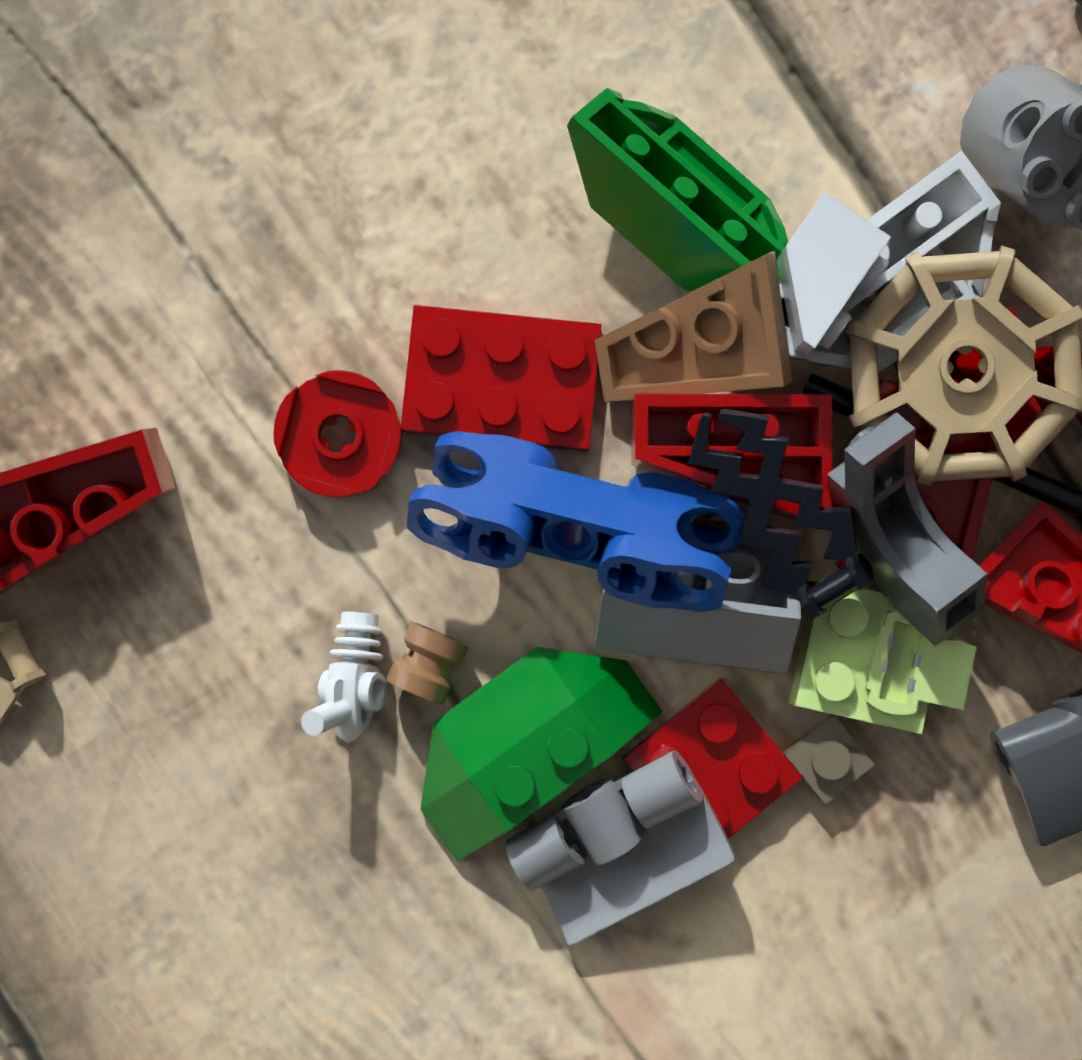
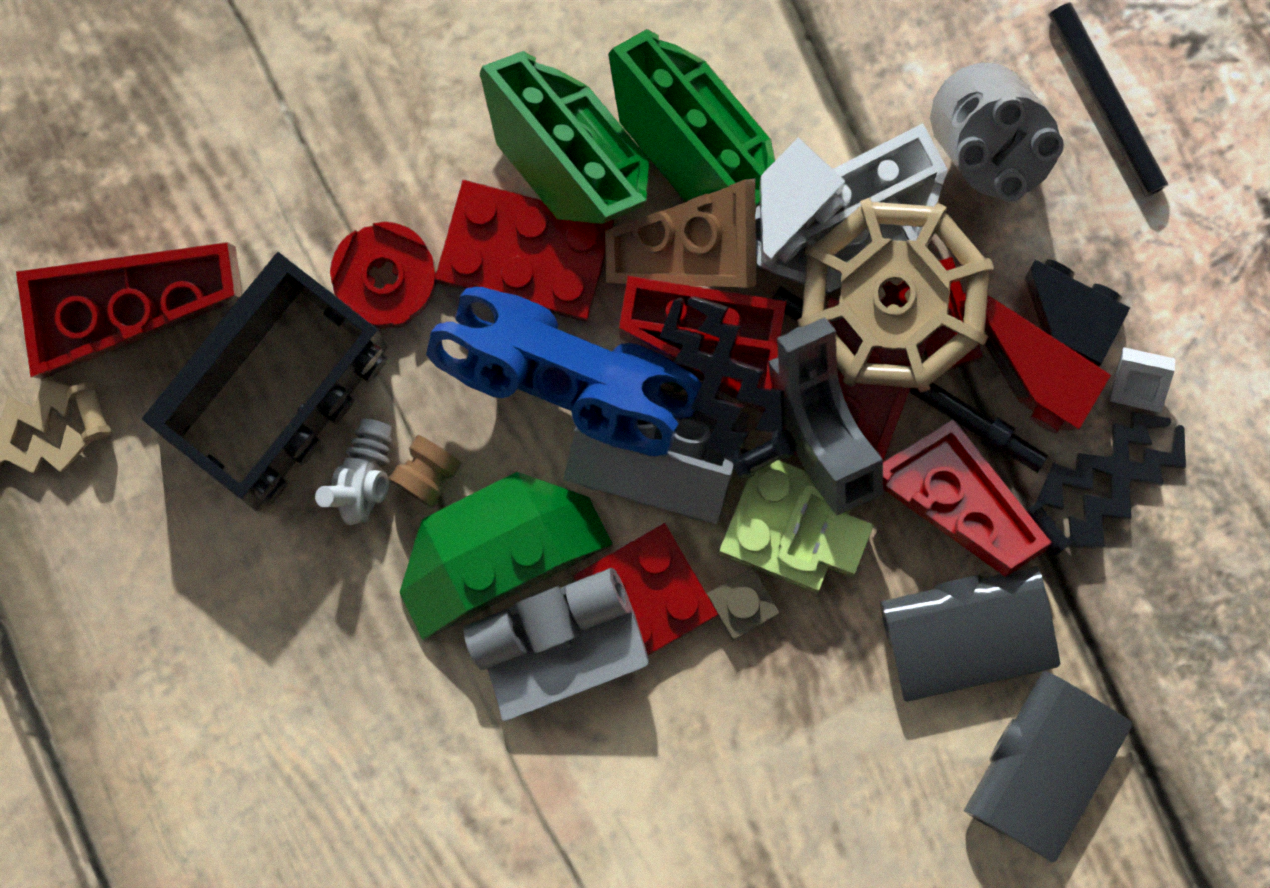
camera: 10 degrees right, 5 degrees down
(158, 570) = (228, 349): none -> black hose
(529, 241) = (563, 141): none -> green wedge

